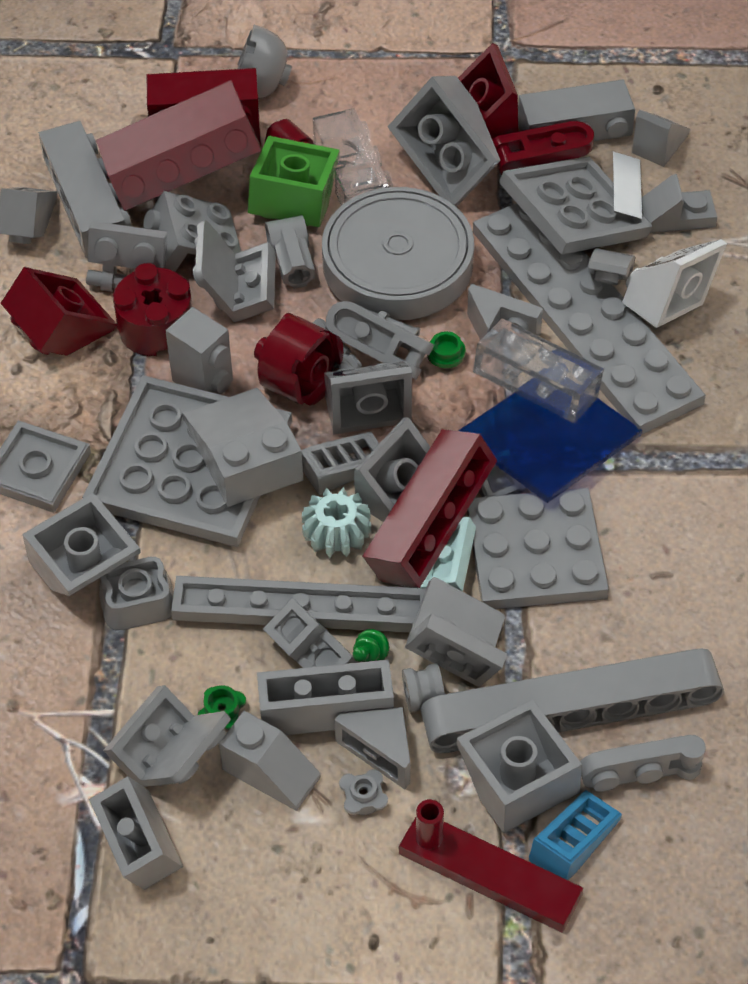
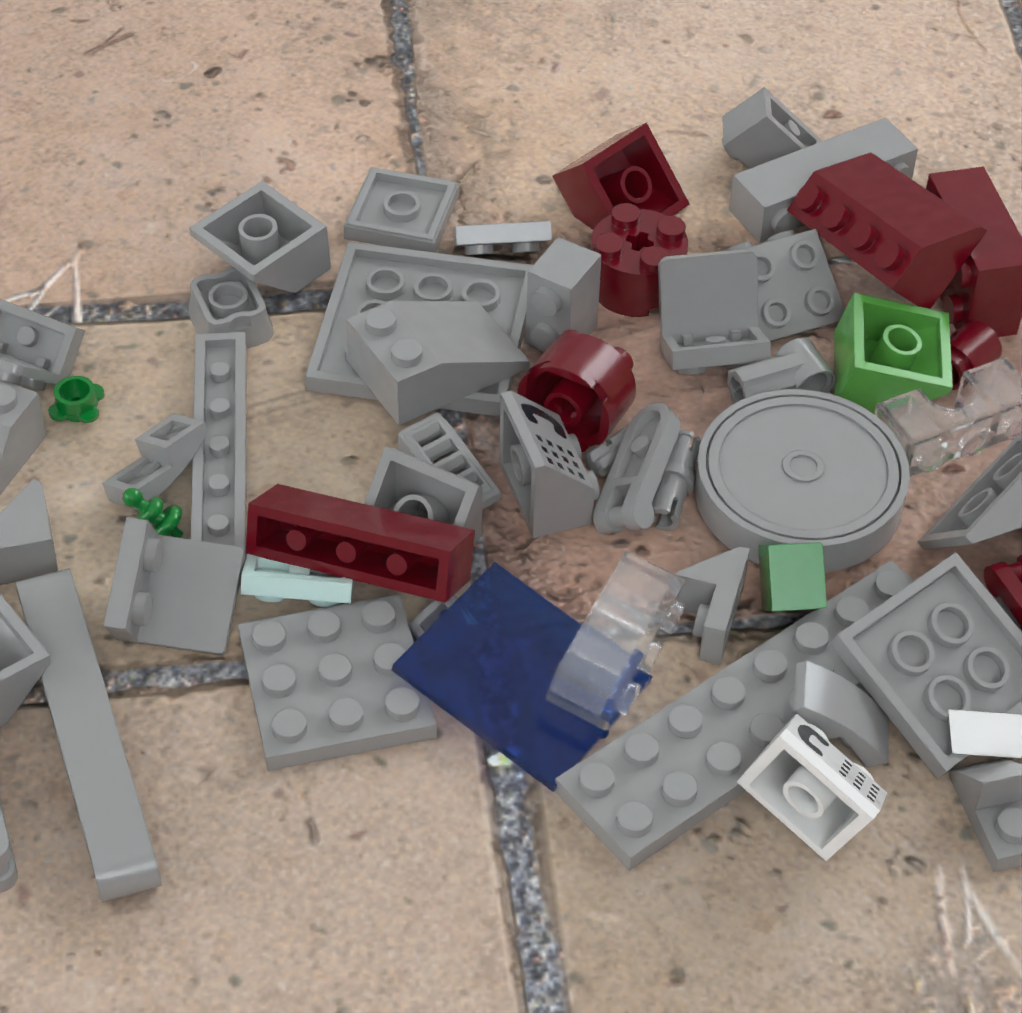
camera: 80 degrees right, 5 degrees down
(95, 395) = (522, 236): none -> light grey plate
(123, 247) = (712, 214): light grey plate -> none
(314, 696) = (70, 475): light grey brick -> none
(336, 522) = (339, 462): light aqua gear -> none
(421, 685) = (94, 569): light grey wheel -> none
(447, 350) = (654, 547): green plate -> none
(498, 270) = (792, 576): none -> panel

